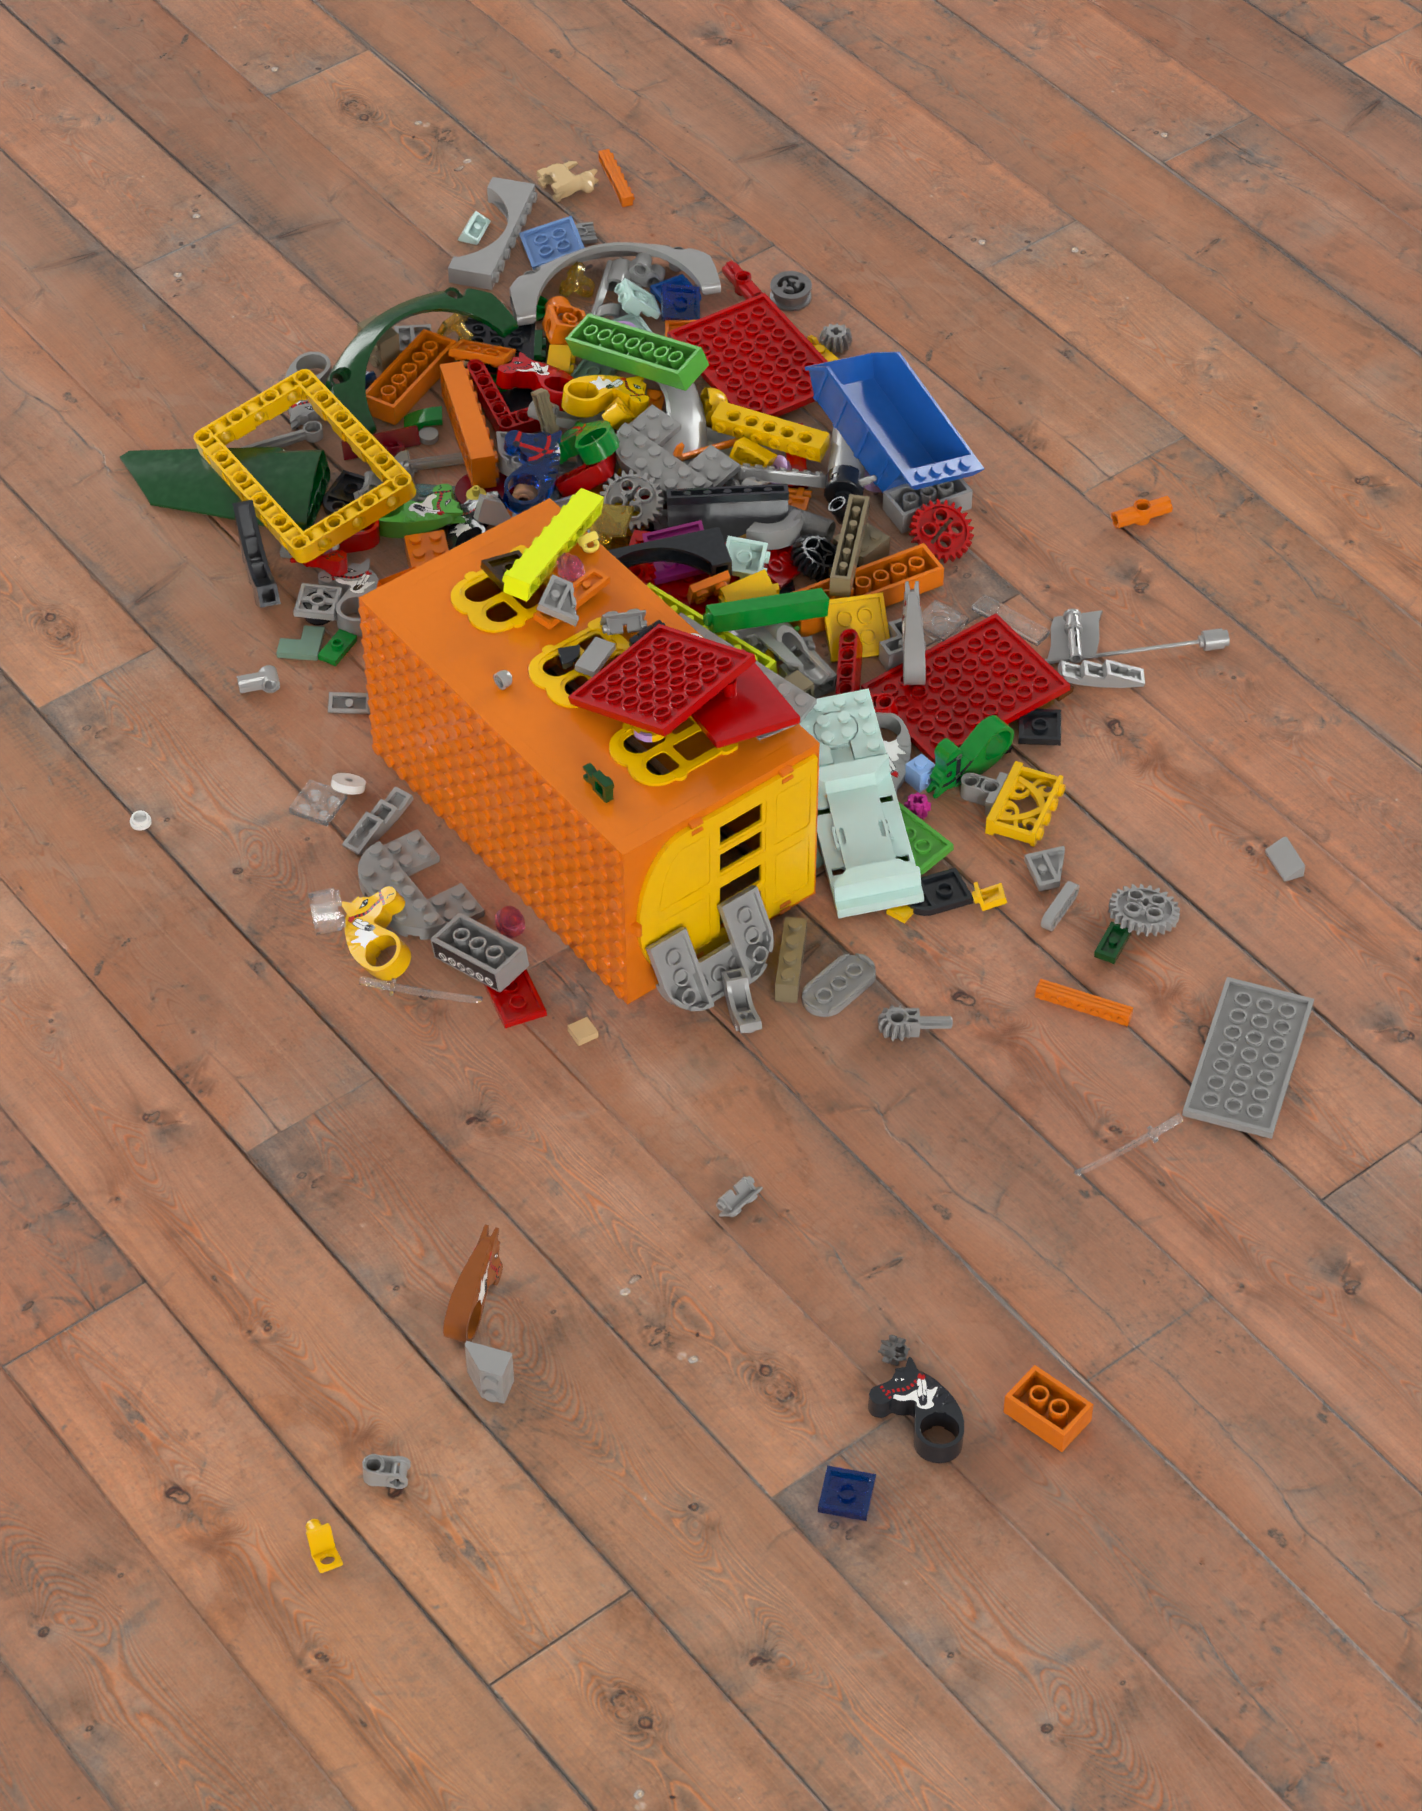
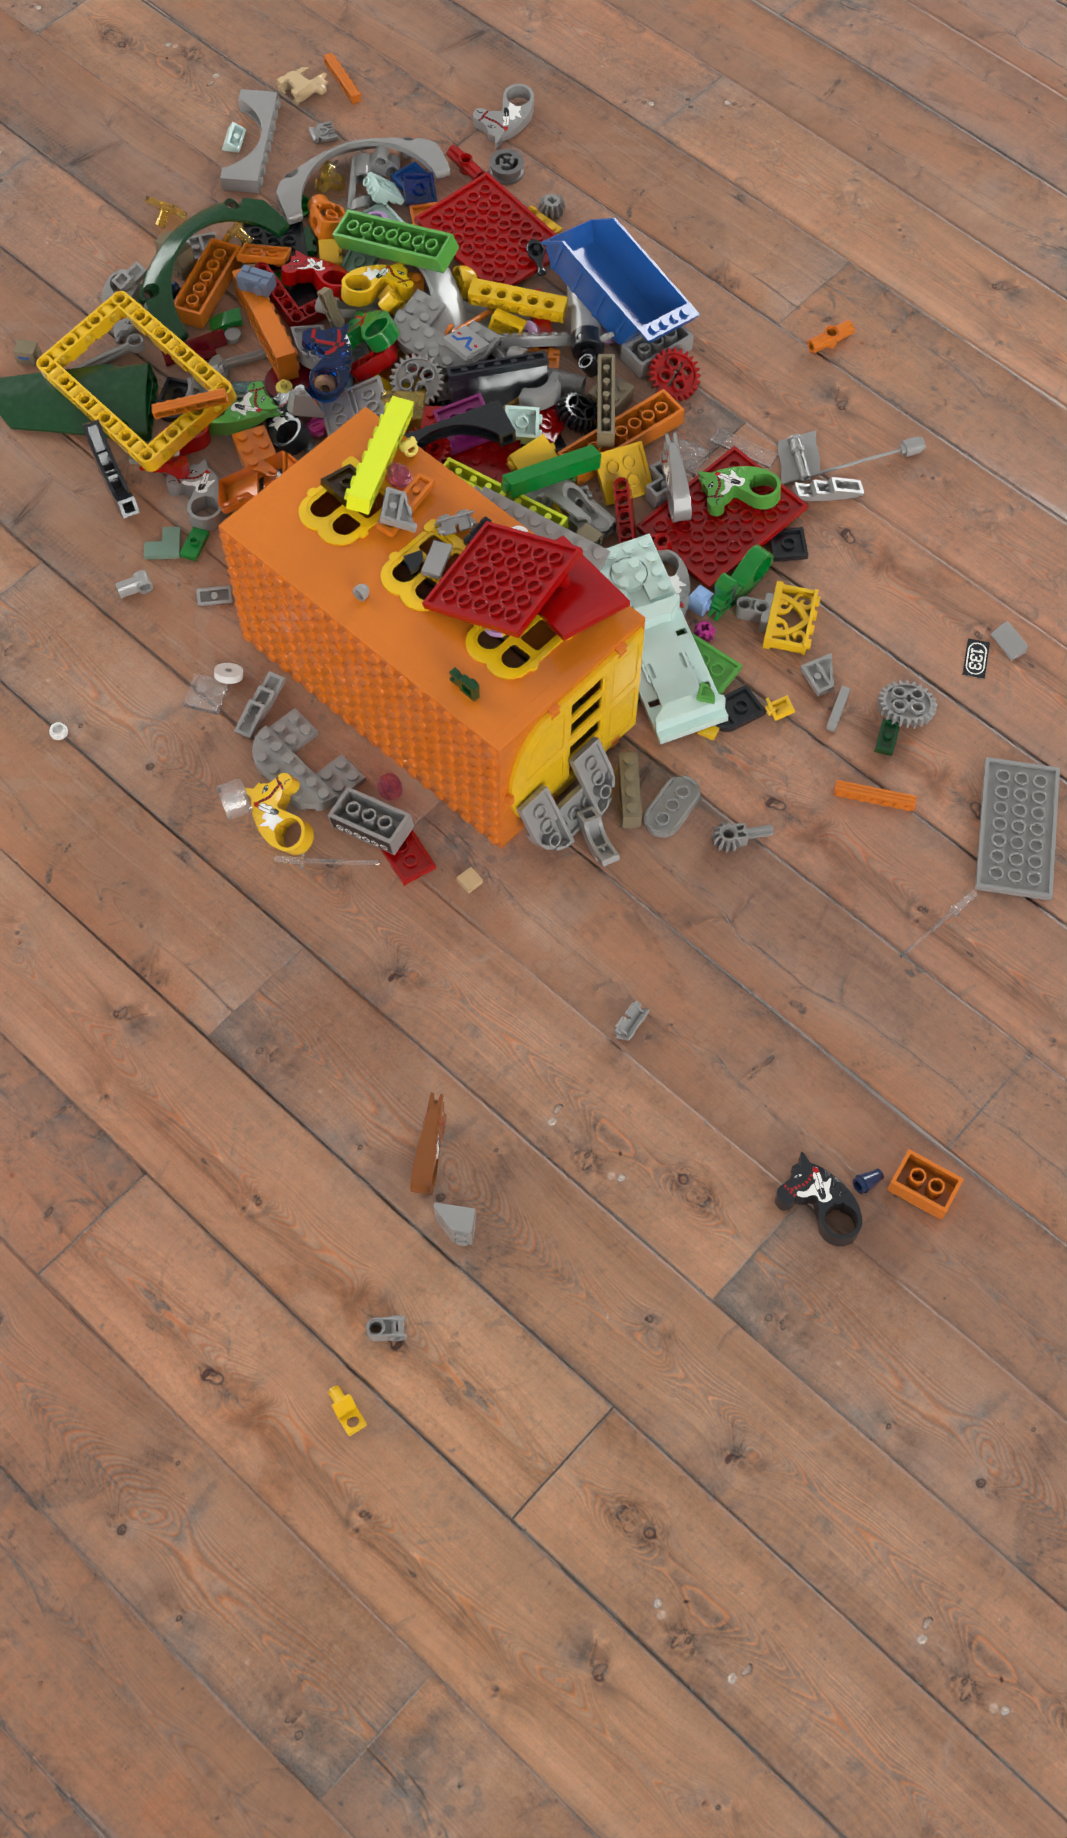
camera: 10 degrees left, 15 degrees up
(185, 426) = (27, 352): none -> dark tan brick
(316, 603) = (169, 505): light grey piece -> none
(320, 361) = (130, 278): none -> light grey slope
(360, 492) = (190, 403): none -> orange piece
(376, 295) = (165, 210): none -> clear yellow tile
(464, 376) = (256, 280): none -> sand blue brick
(551, 241) = (301, 144): medium blue plate -> none
(695, 466) = (465, 342): none -> light grey tile
(711, 586) = (502, 453): orange plate -> none
(803, 386) = (536, 253): none -> black piece
(806, 241) = (511, 120): none -> light grey animal
(847, 1493) = (775, 1288): clear blue plate -> none
(893, 1350) = (787, 1147): dark grey gear -> none
(897, 862) = (705, 694): none -> bright green tile
(981, 1398) = (866, 1181): none -> dark blue cone
(990, 651) = (737, 483): none -> bright green animal
(1241, 874) = (976, 658): none -> black sticker

